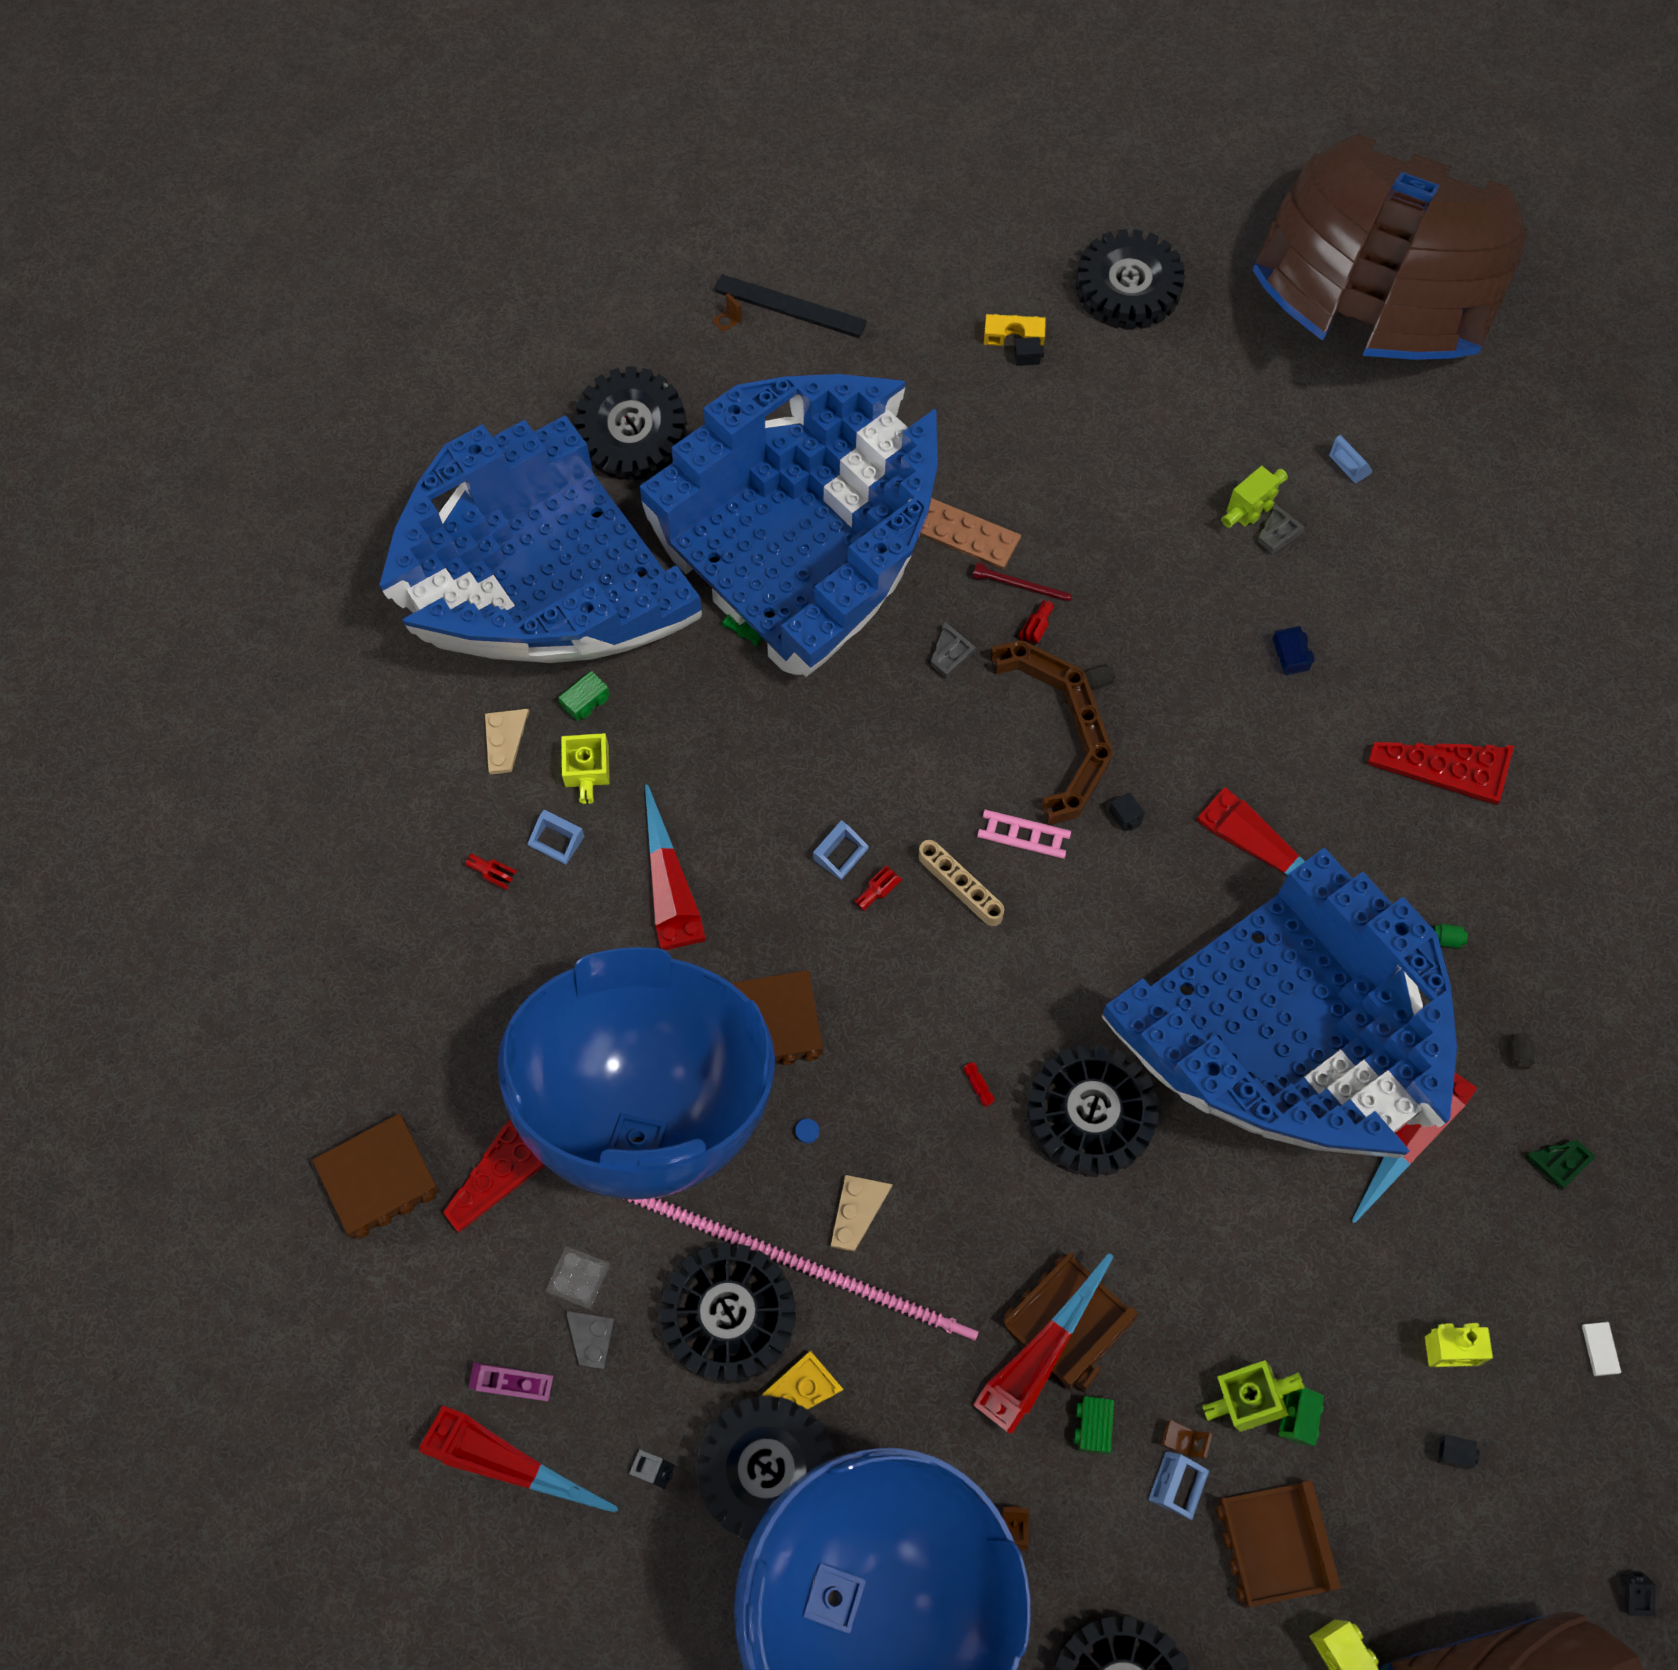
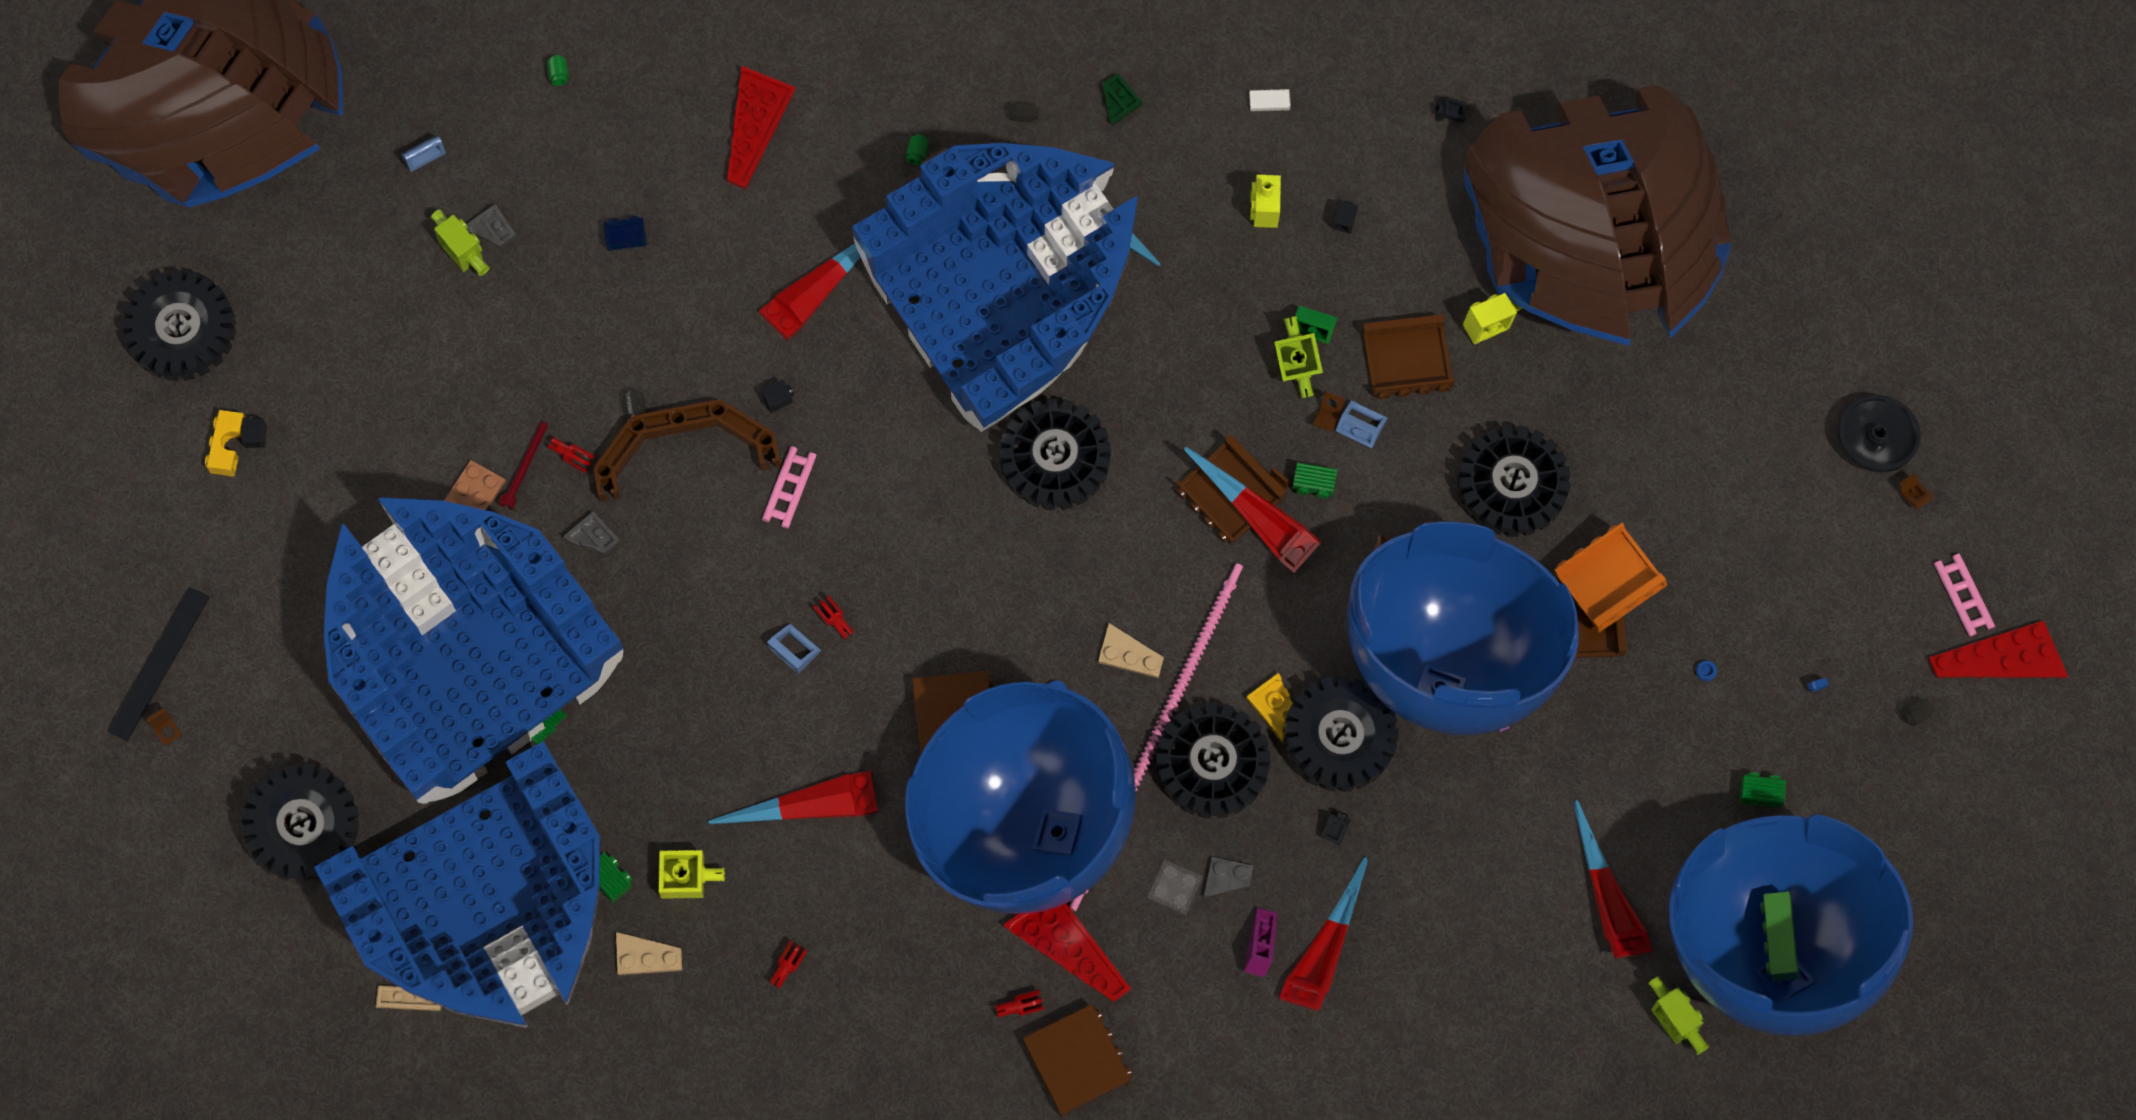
camera: 90 degrees left, 5 degrees up
(442, 1112) = (1017, 1005): none -> red arm
(561, 826) = (747, 899): medium blue tile -> none
(958, 873) = (838, 535): tan beam -> none
(979, 1084) = (1023, 546): red axle -> none
(1469, 571) = (557, 70): none -> green brick

